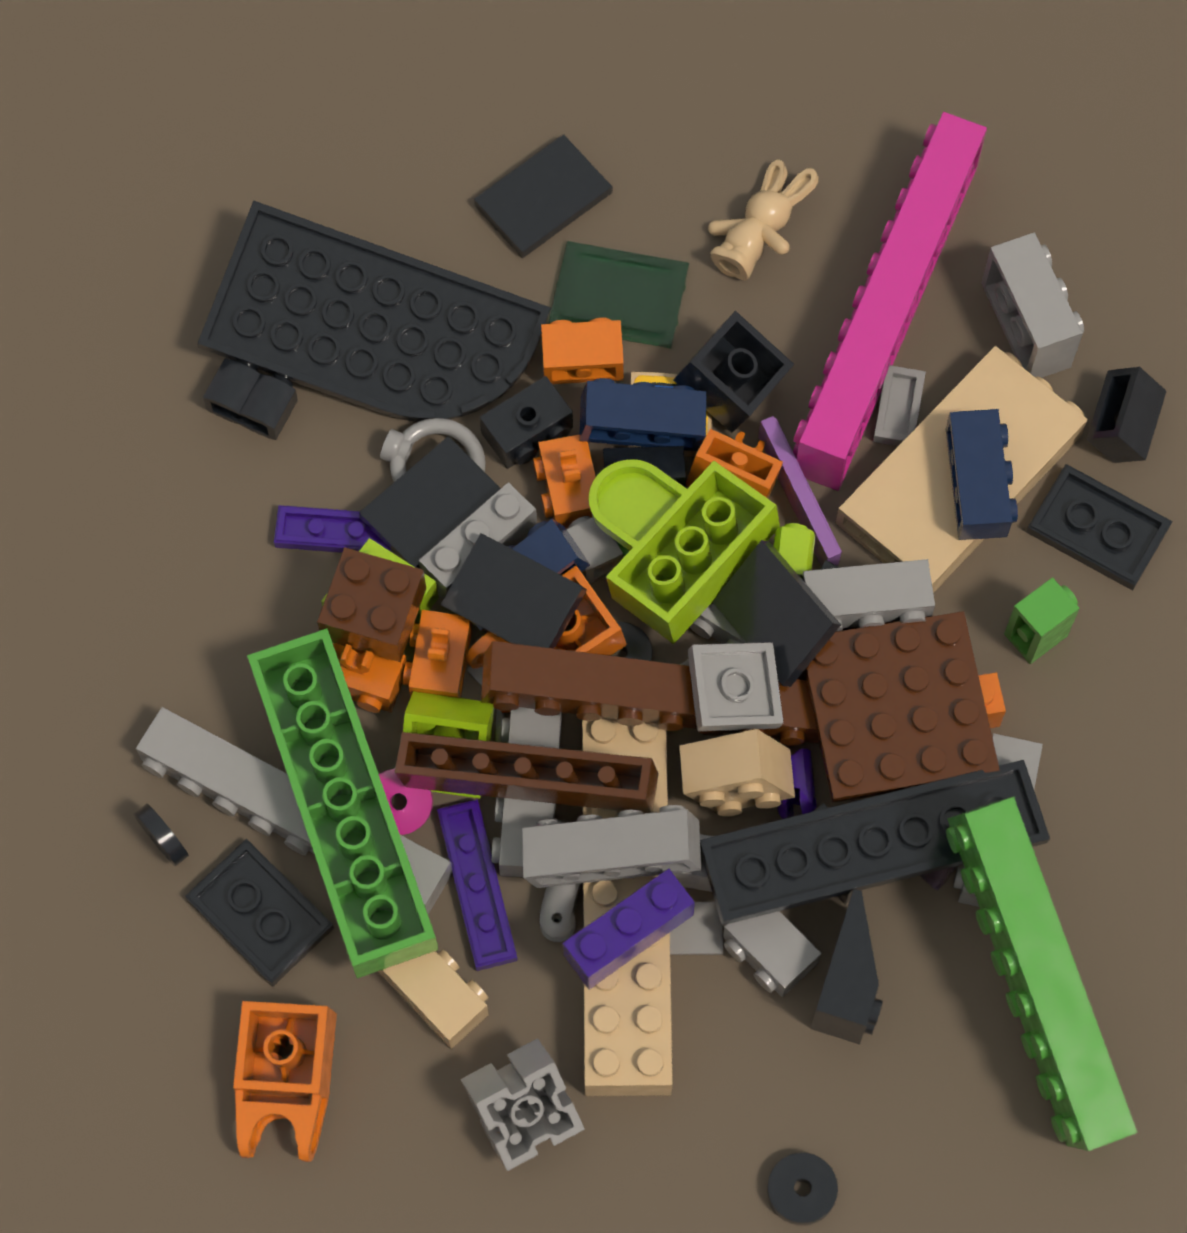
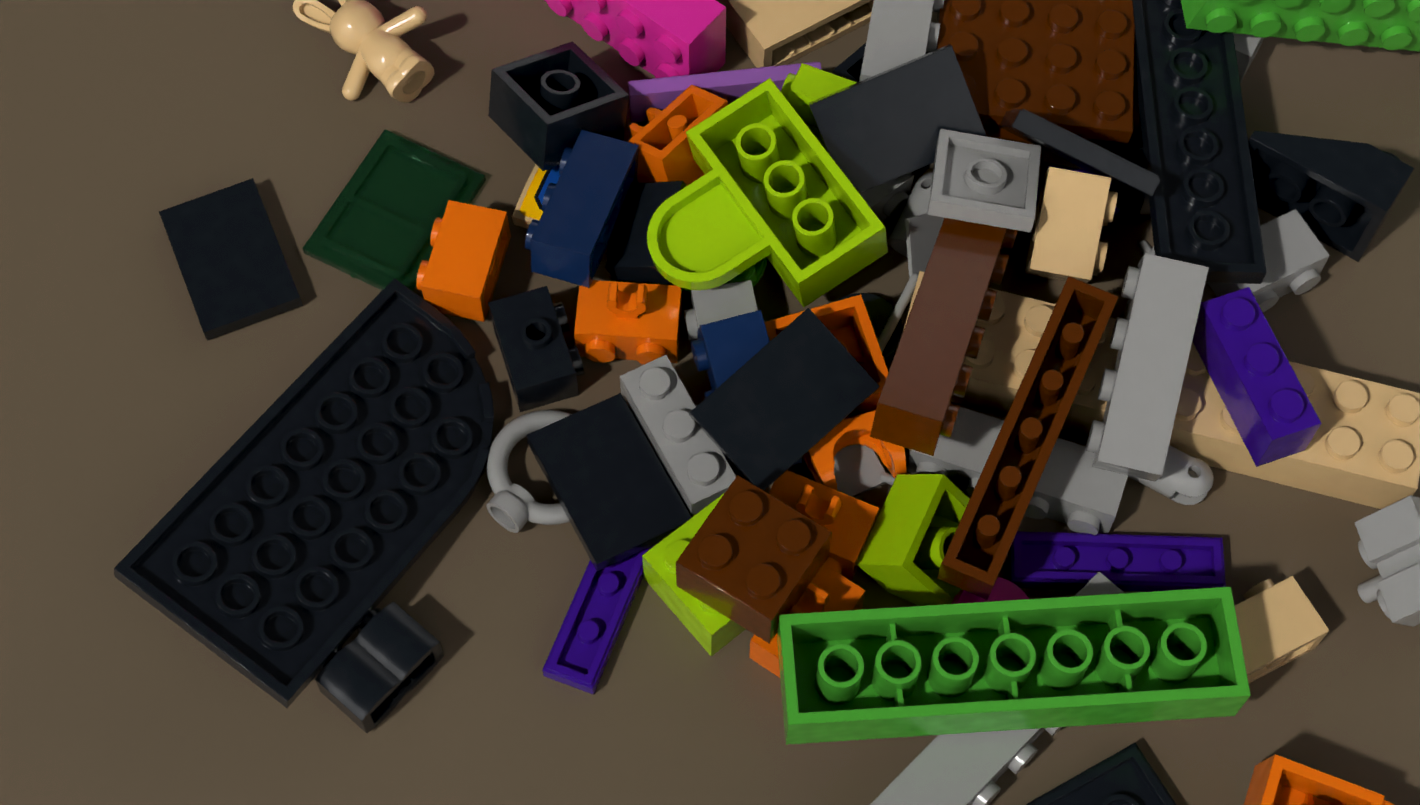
camera: 75 degrees left, 5 degrees down
(785, 751) = (1080, 151): none -> black tile

